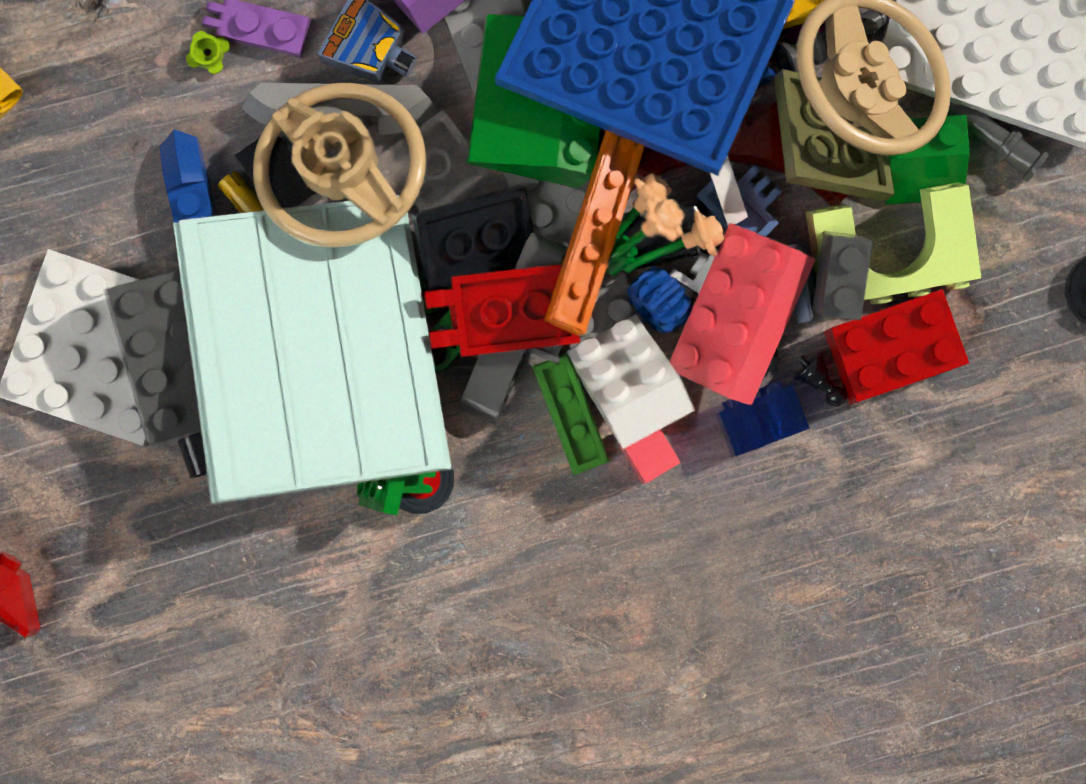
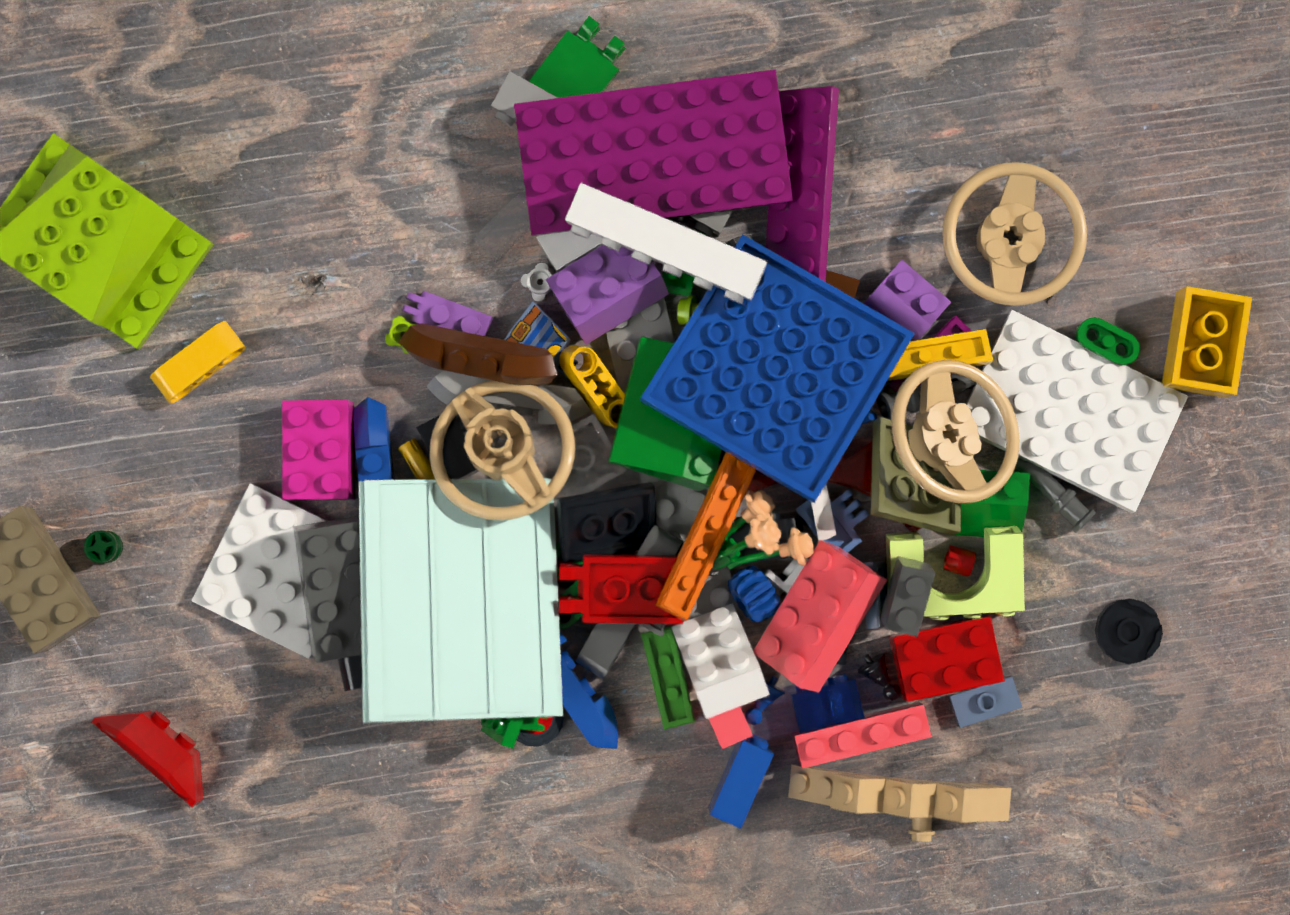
camera: 10 degrees right, 0 degrees up
(122, 198) = (317, 450): none -> dark pink brick
(298, 60) = (479, 355): none -> reddish brown brick
(429, 81) = (596, 370): none -> yellow beam
(488, 471) = (592, 717): none -> blue brick
(673, 519) = (741, 780): none -> blue brick
(686, 426) = (754, 715): none -> blue piece
(808, 450) = (862, 736): none -> coral brick
(862, 513) = (900, 796): none -> tan arch
(891, 542) = (922, 829): none -> tan pin
(896, 232) = (959, 561): none -> red hose
(947, 393) = (985, 702): none -> sand blue plate

